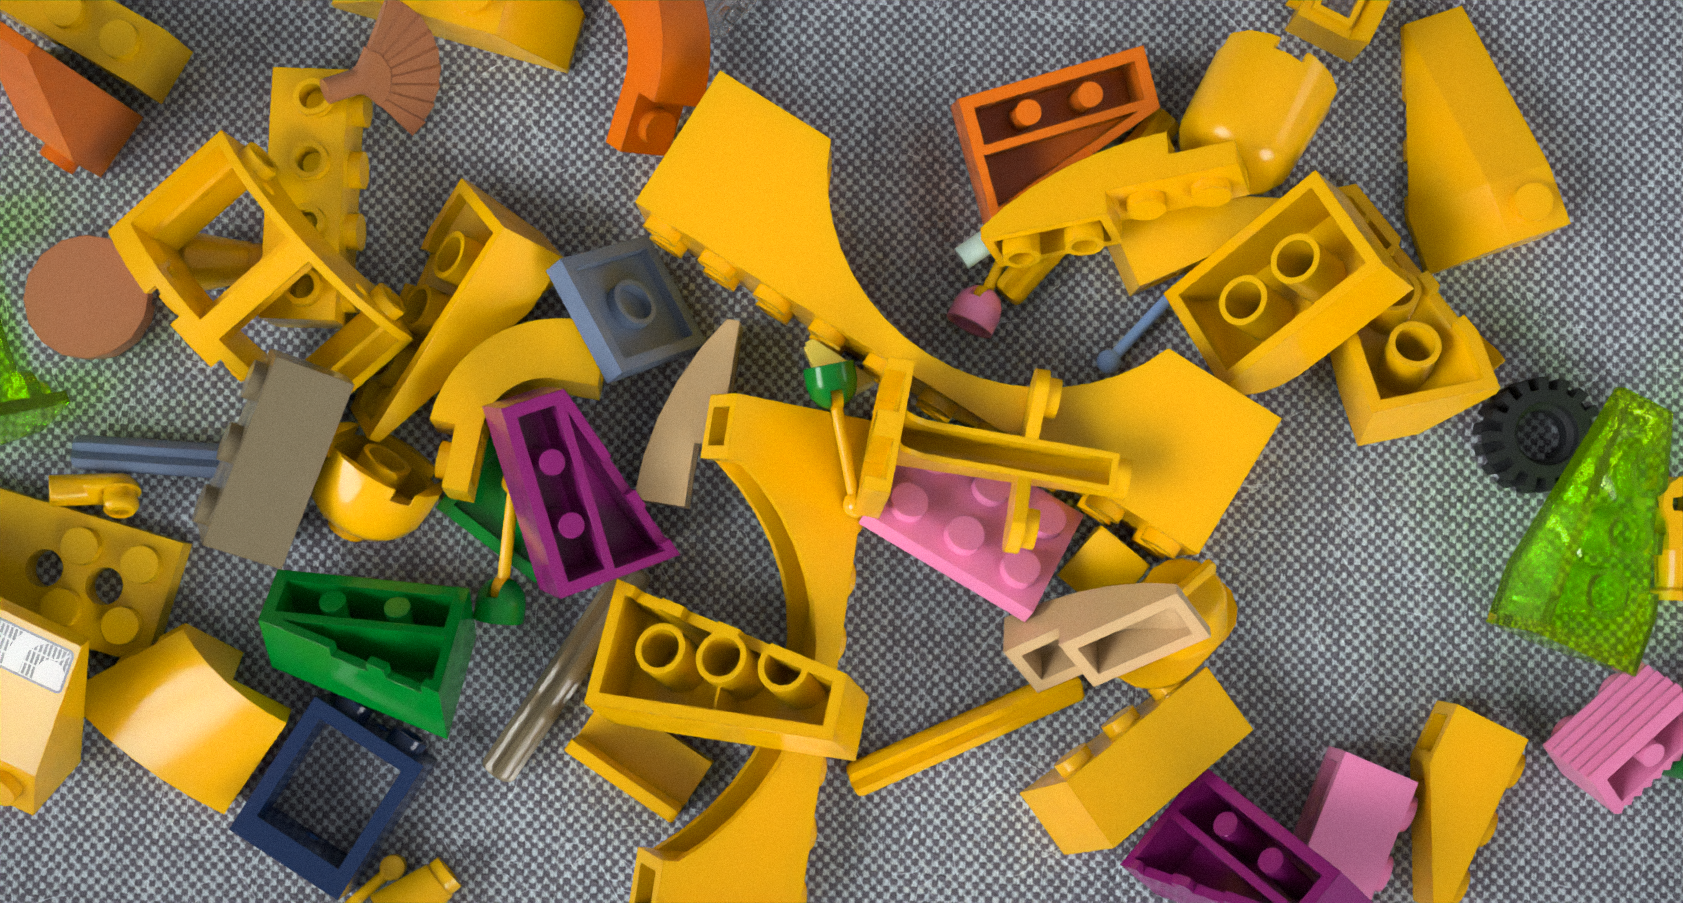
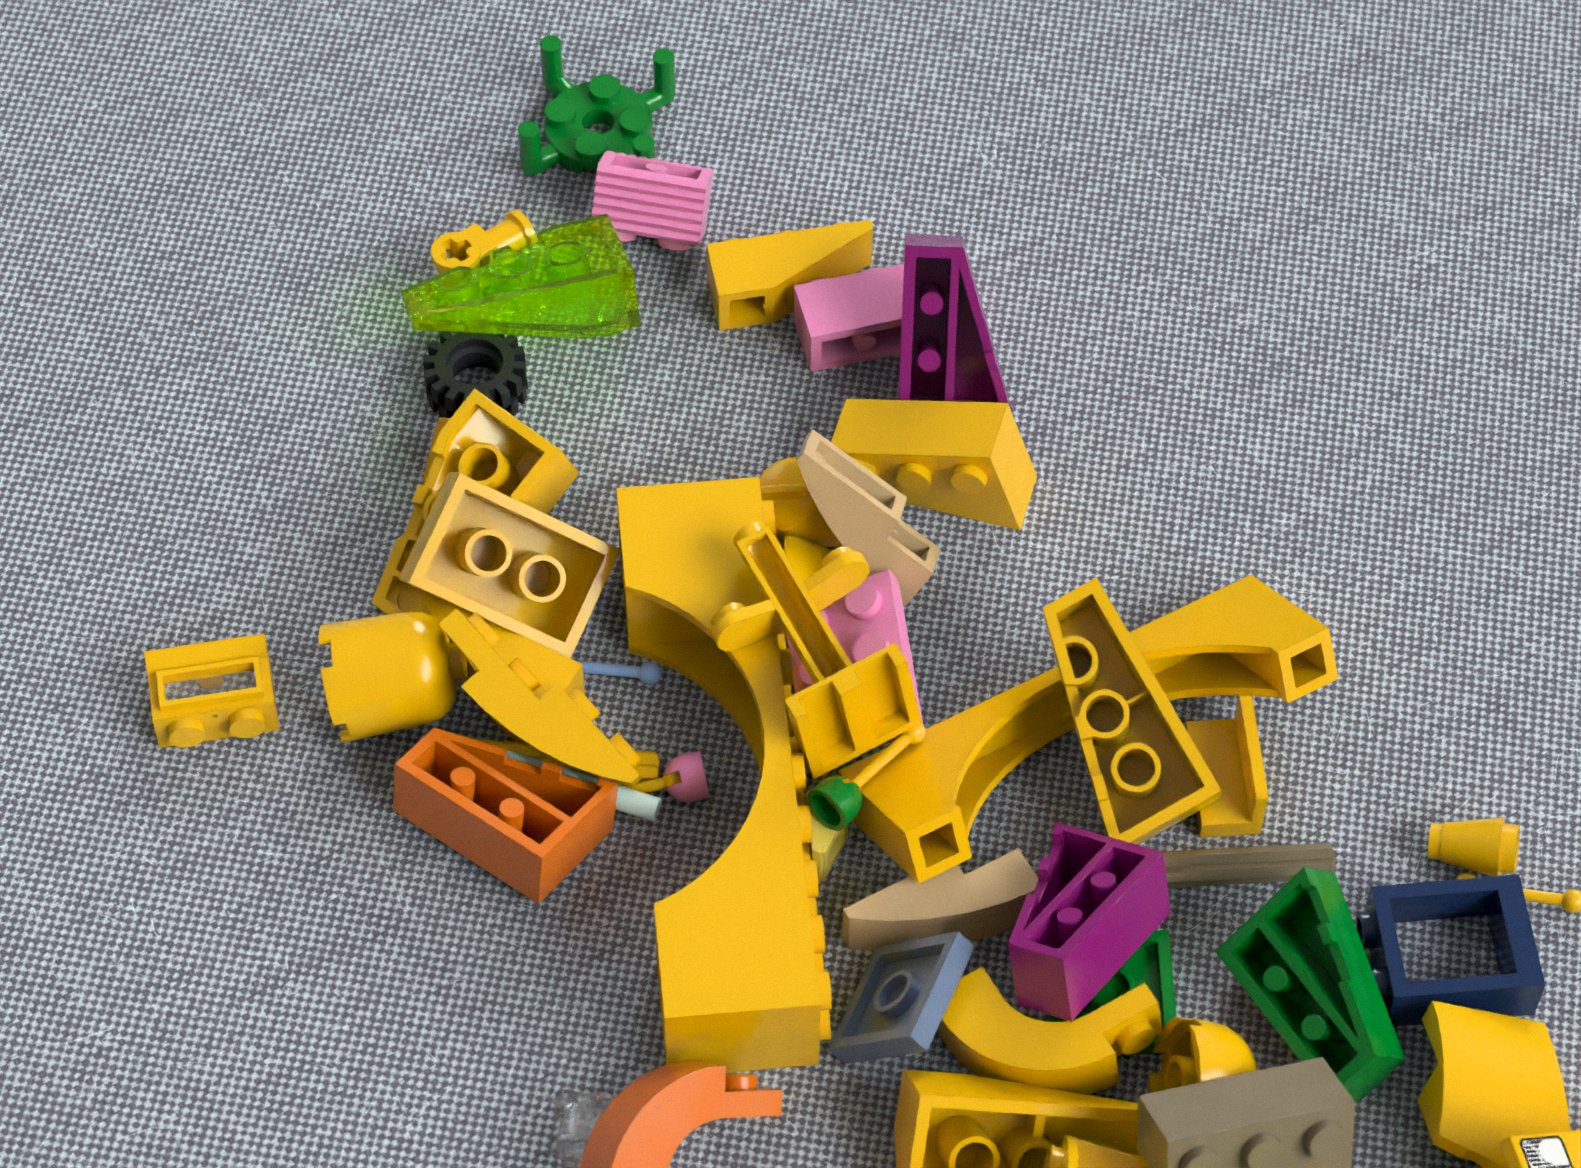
camera: 130 degrees left, 30 degrees down
(501, 598) = (1197, 946): green hinge -> none
(959, 734) = (992, 574): yellow axle -> none
(1468, 152) = (297, 531): yellow wedge -> none

